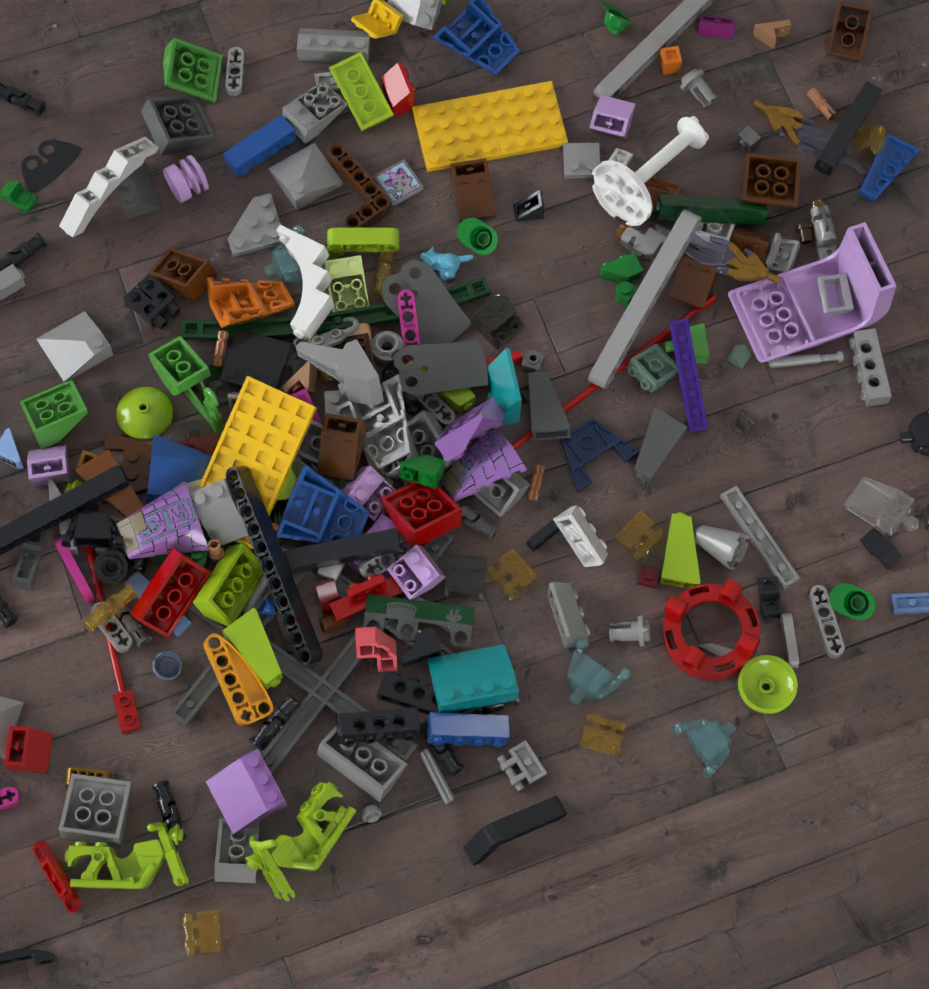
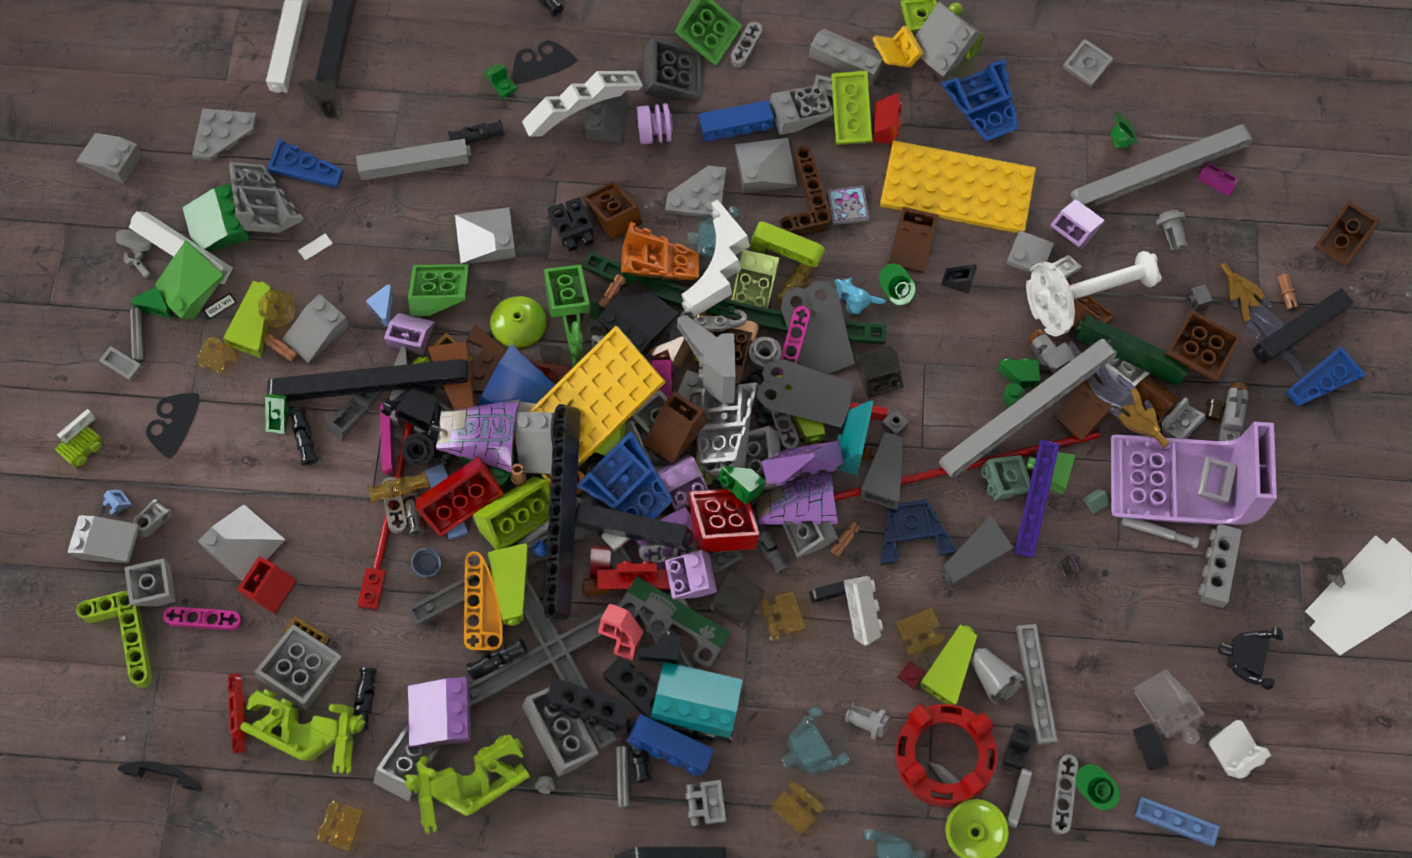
camera: 25 degrees right, 0 degrees up
(567, 613) = (816, 677): light grey slope -> none
(670, 60) = (1157, 192): orange brick -> none
(769, 31) = (1265, 203): medium nougat slope -> none
(871, 138) = (1321, 344): clear yellow plate -> none

